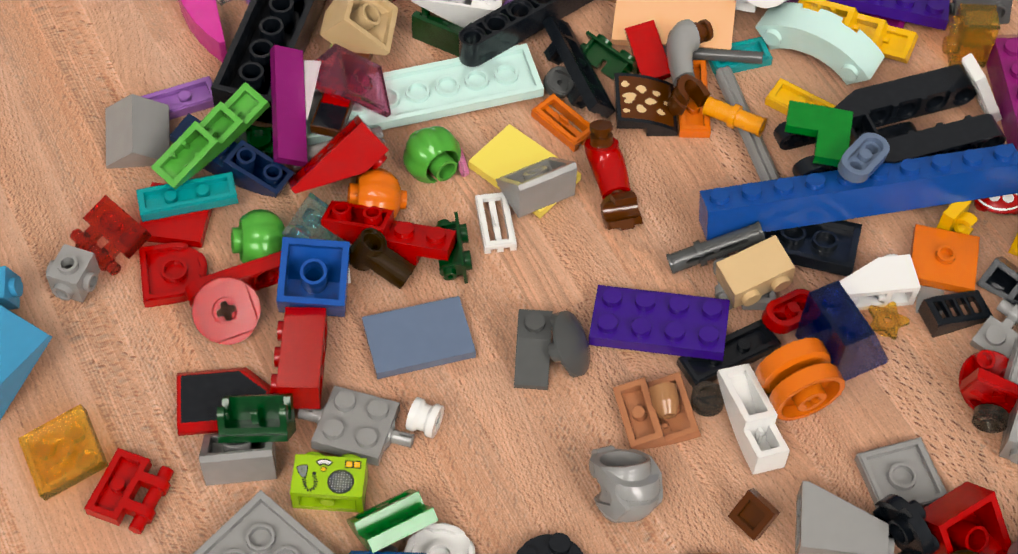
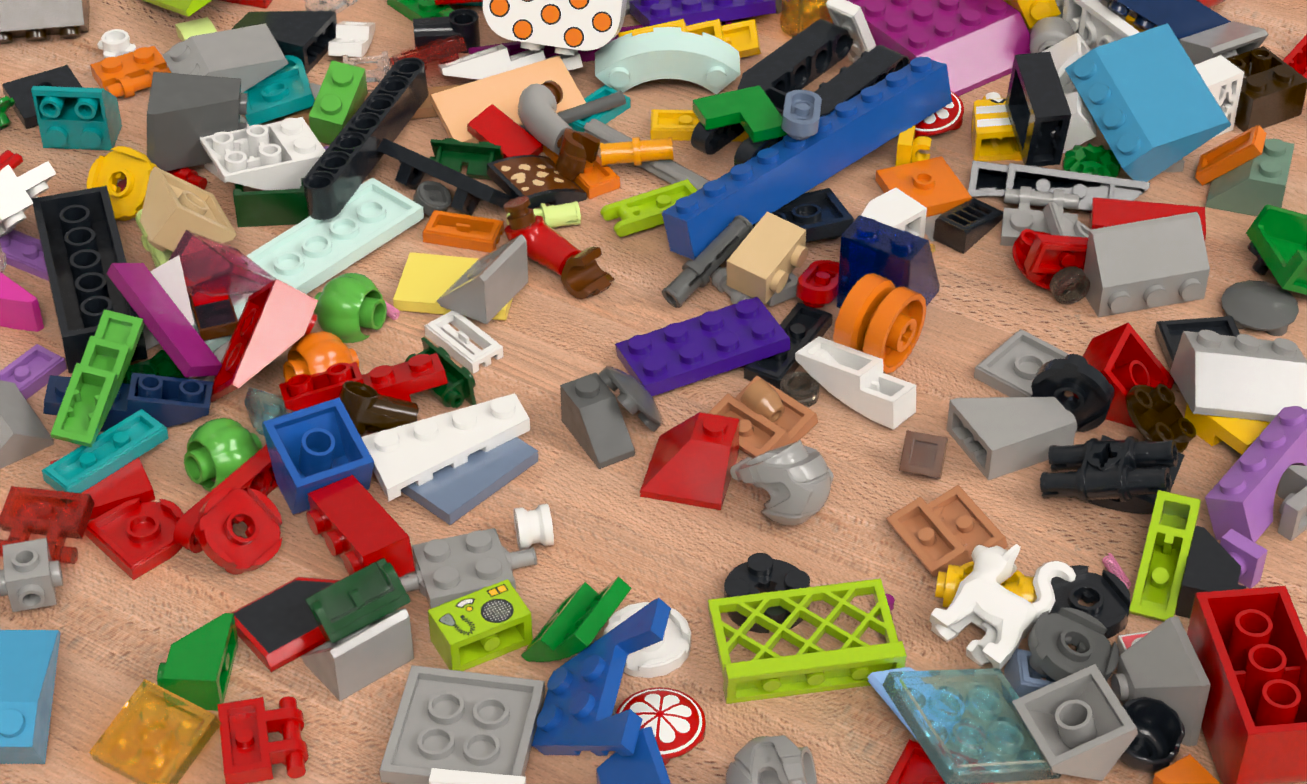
camera: 30 degrees left, 15 degrees down
(132, 408) = (202, 663): none -> green slope
(396, 306) = (425, 446): none -> white wing
(577, 424) = (694, 462): none -> red slope
(636, 142) = (558, 215): none -> yellowish green axle
(713, 172) = (645, 209): none -> lime hinge

